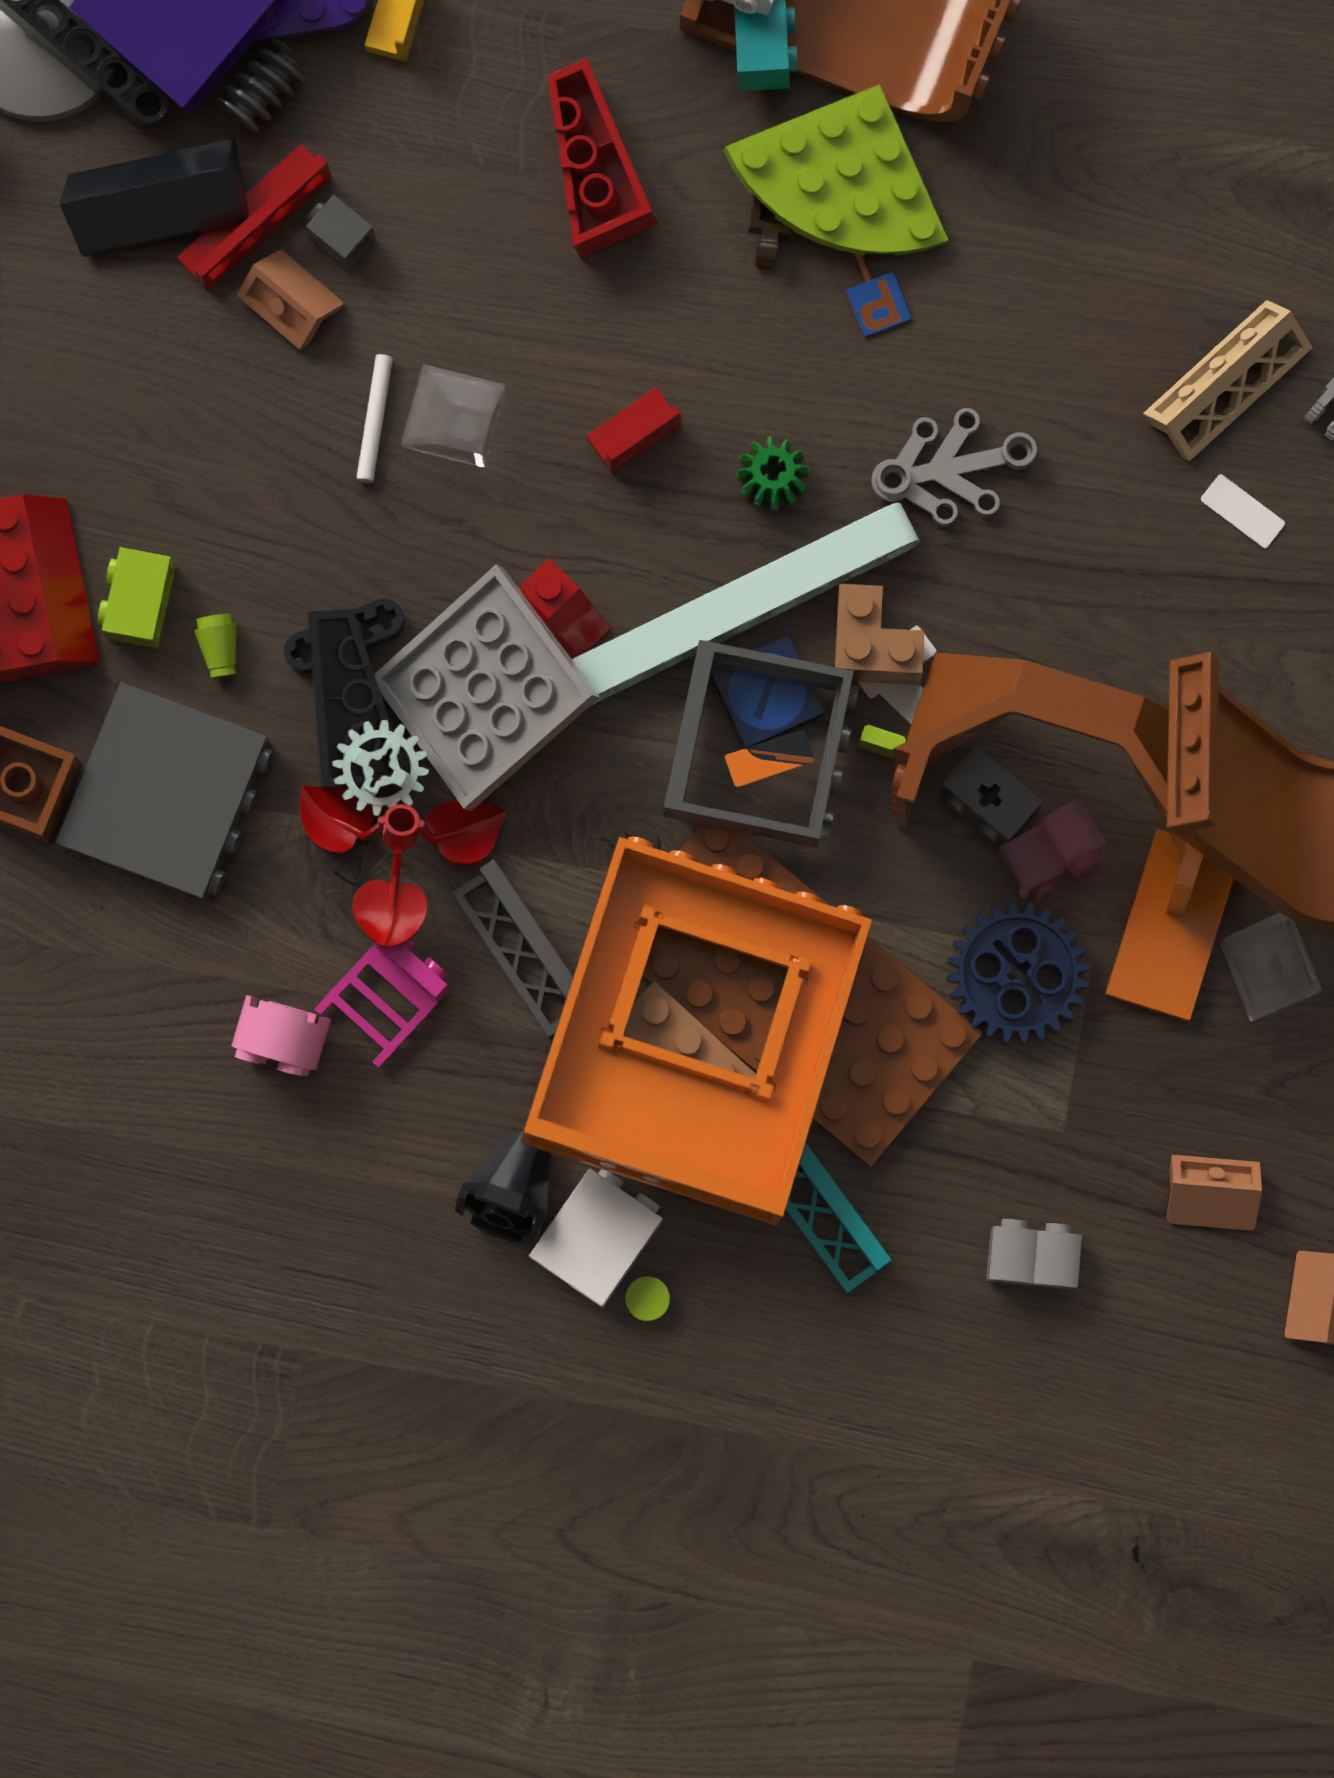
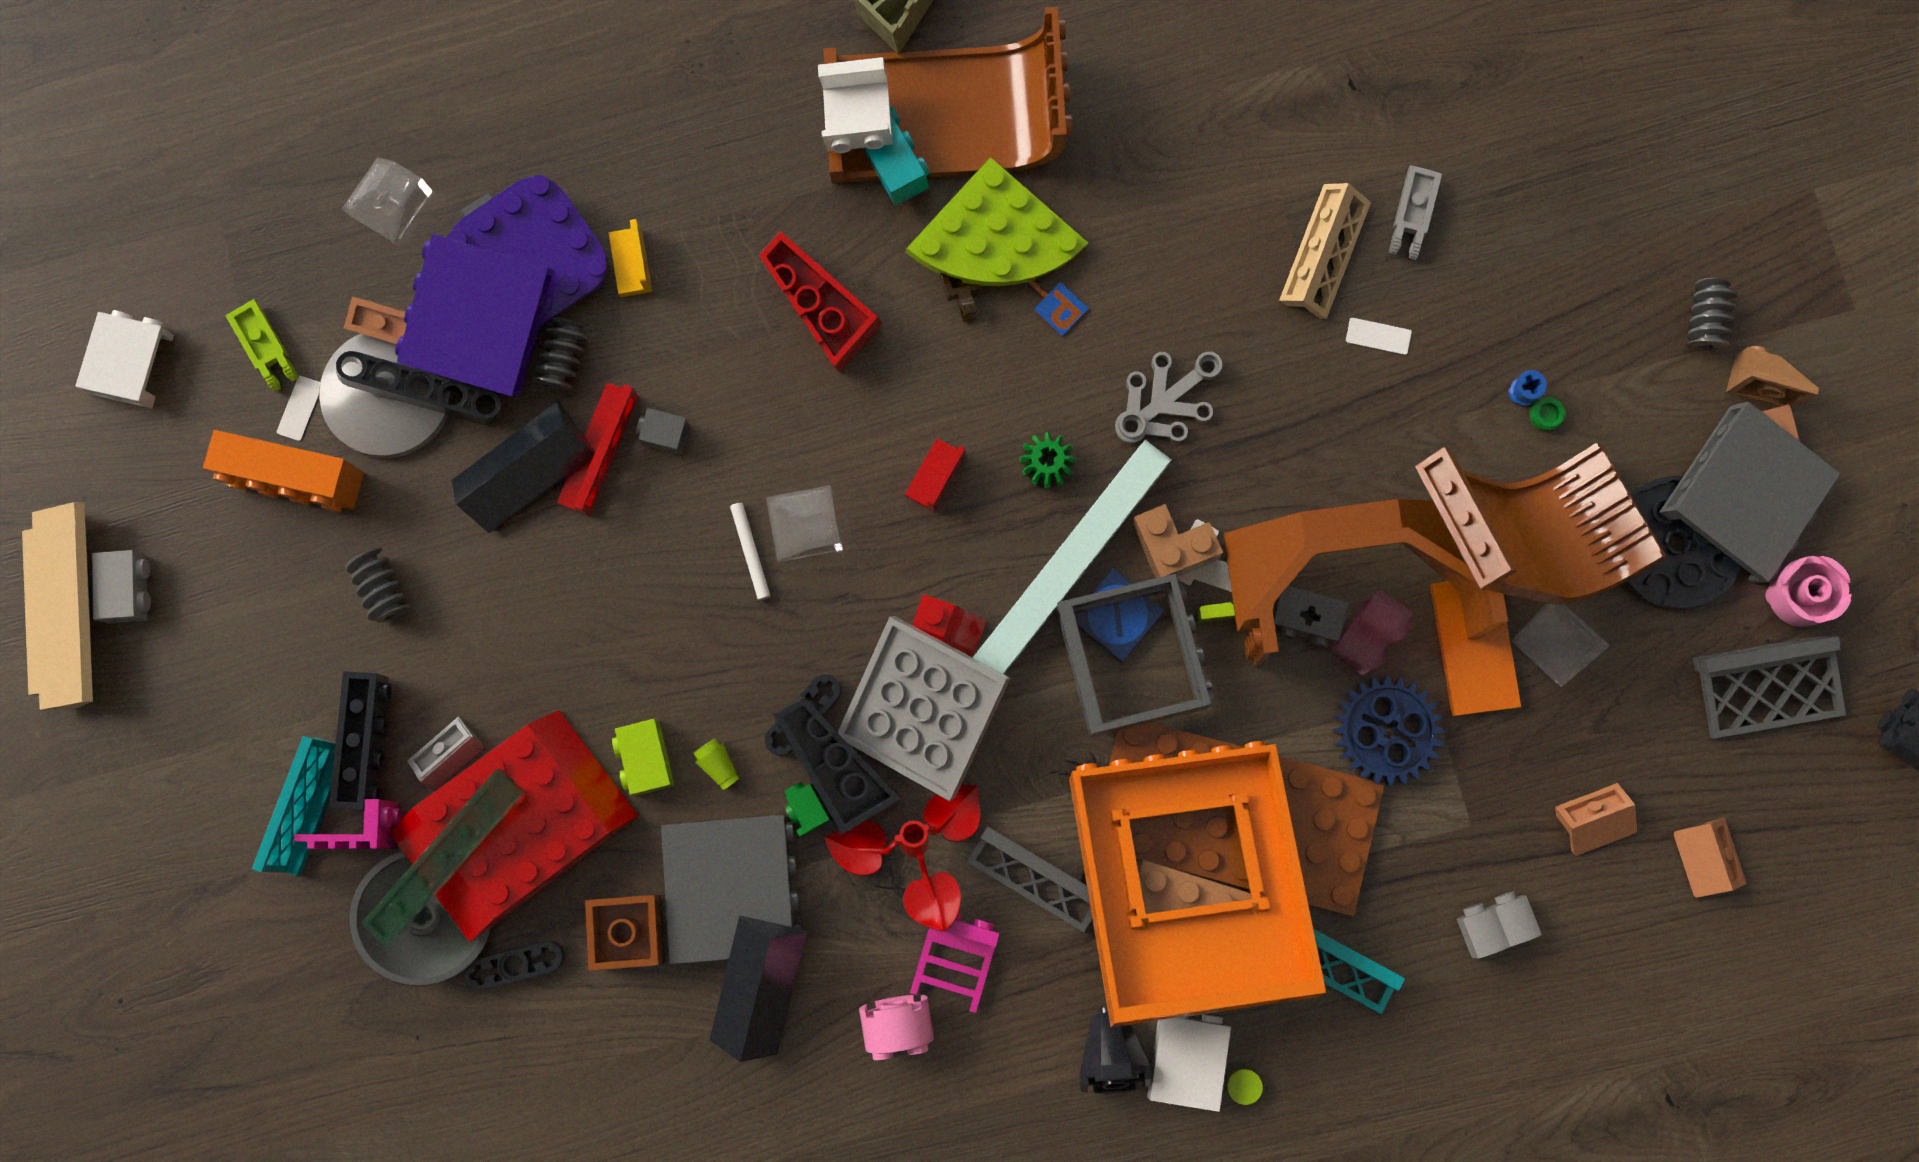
camera: 25 degrees left, 0 degrees up
(142, 916) = (757, 988): none -> black slope
(288, 297) = (649, 494): nougat panel -> none
(295, 744) = (805, 808): none -> green brick
(405, 780) = (878, 817): light aqua gear -> none
(769, 758) = (1145, 662): sticker -> none

